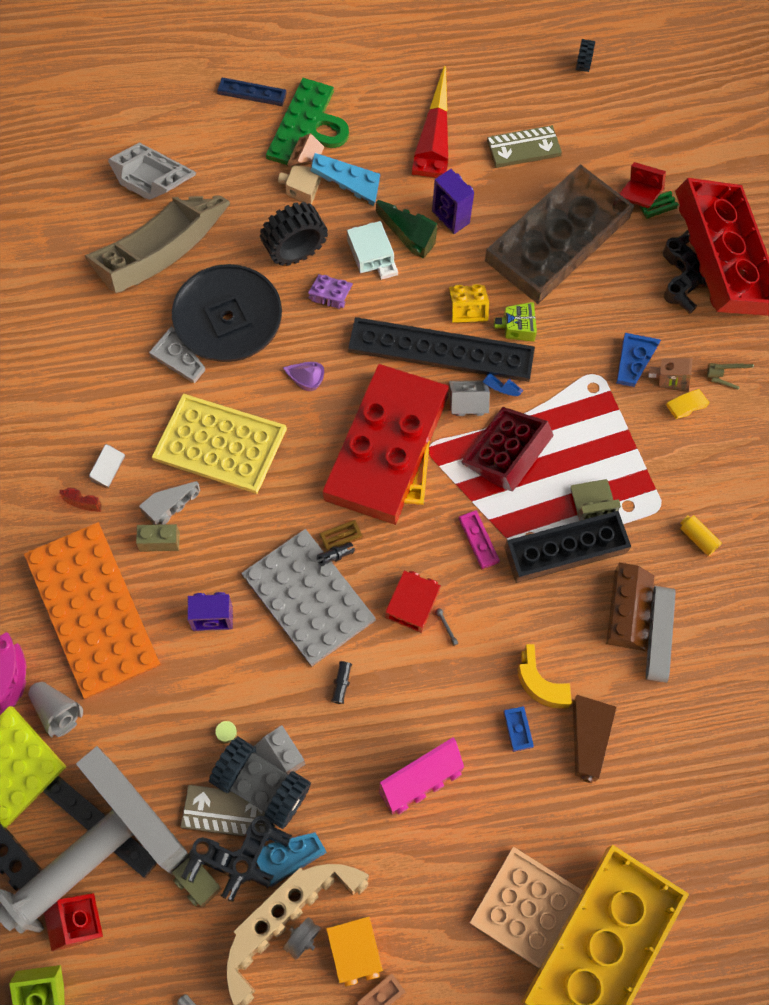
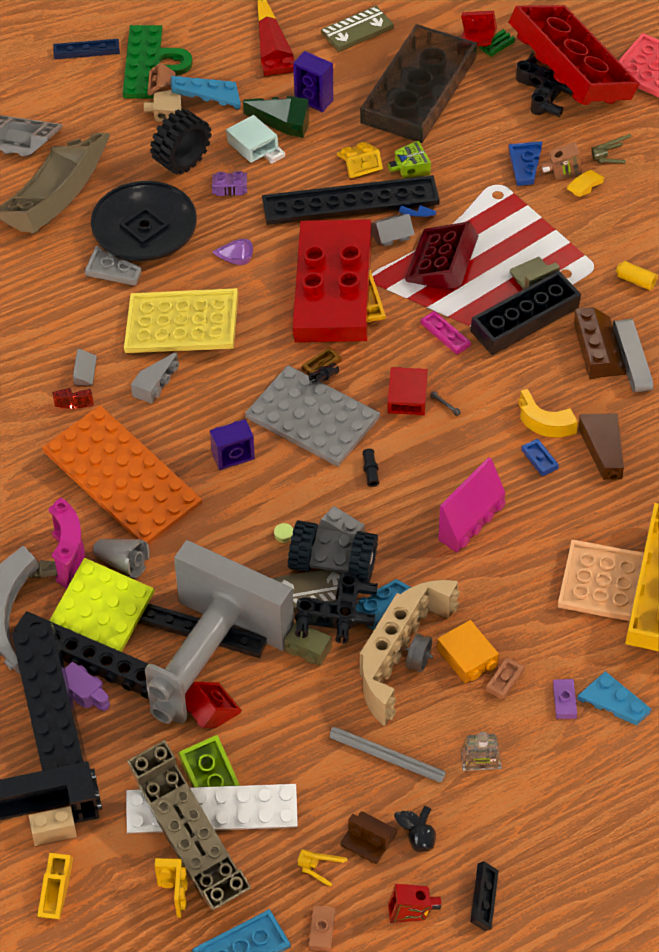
camera: 15 degrees left, 15 degrees down
(157, 537) = (157, 406): olive brick -> none

